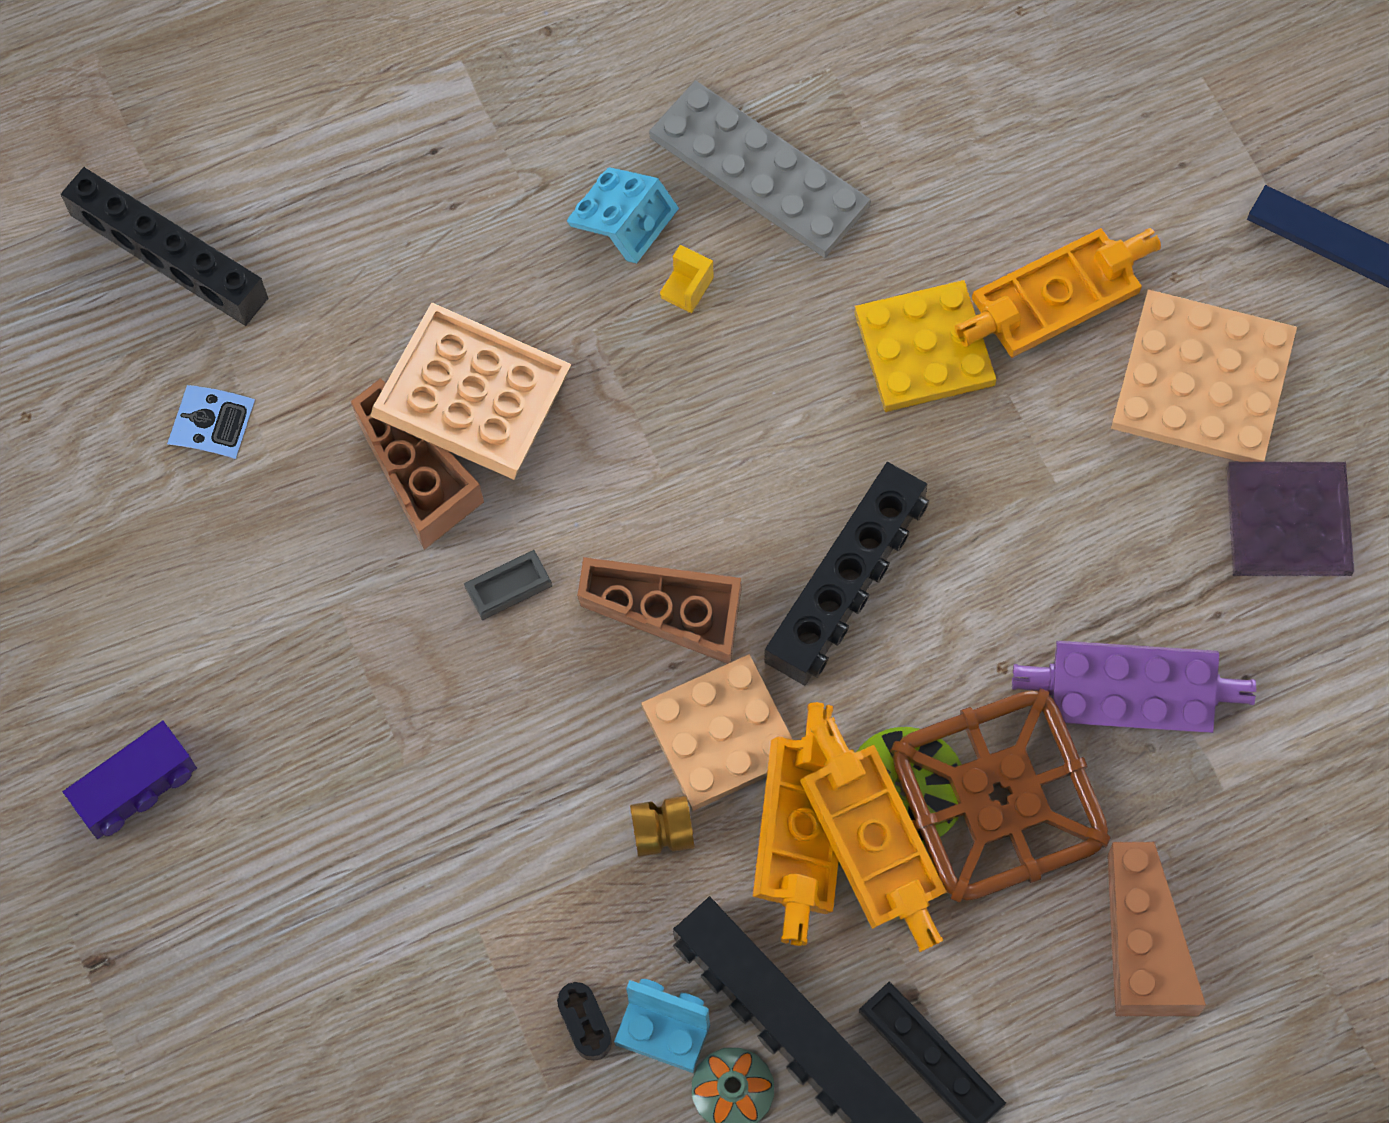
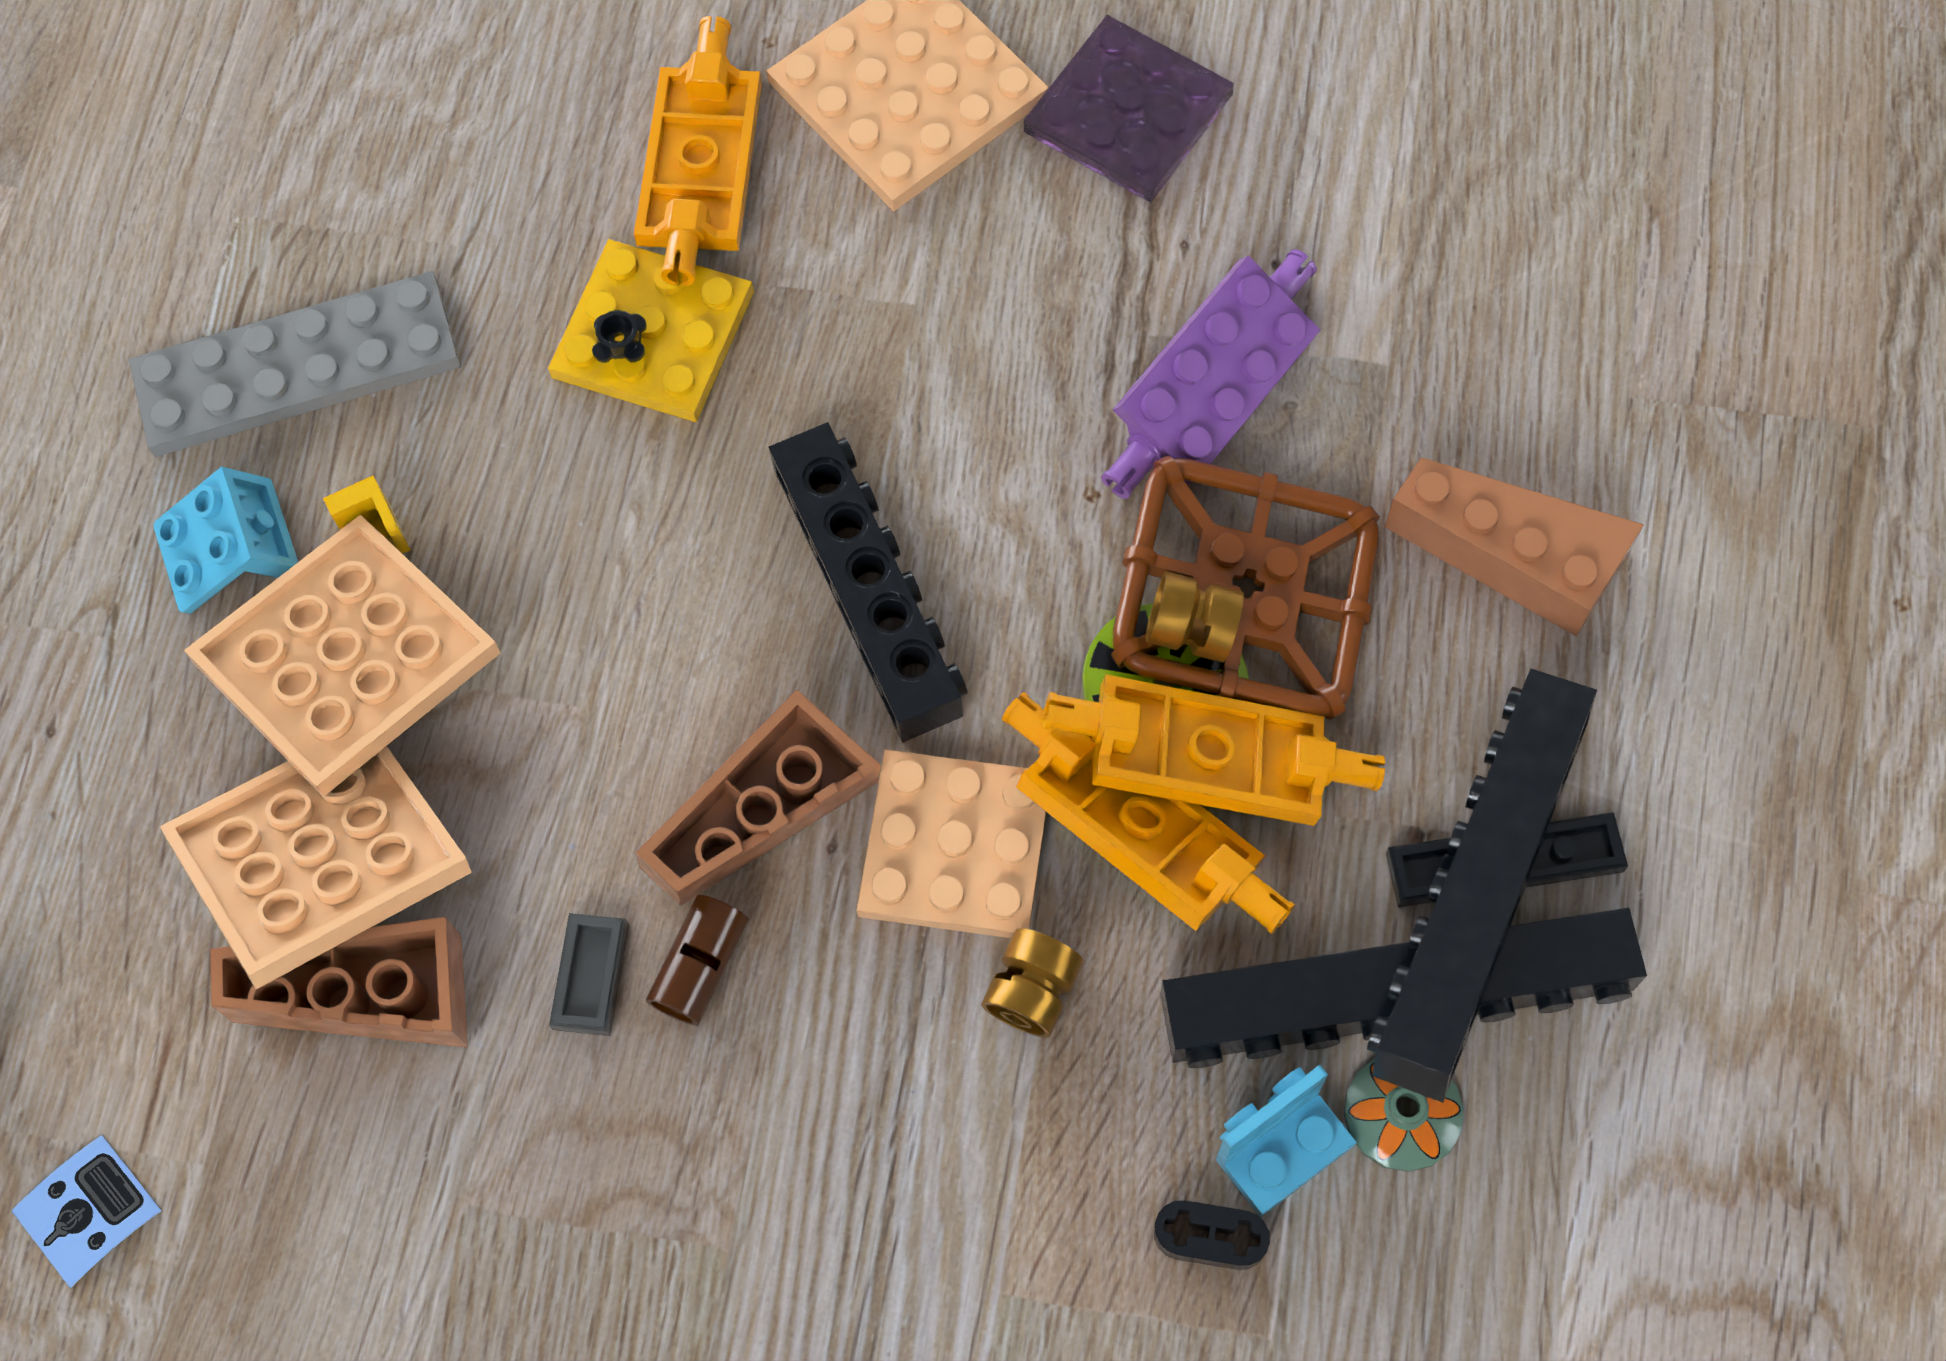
camera: 55 degrees left, 0 degrees up
(552, 635) = (697, 959): none -> reddish brown pin
(596, 322) = (342, 654): none -> light nougat plate
(896, 1042) = (1483, 886): none -> black brick
(902, 321) = (617, 324): none -> black plate
(944, 770) = (1194, 617): none -> pearl gold wheel

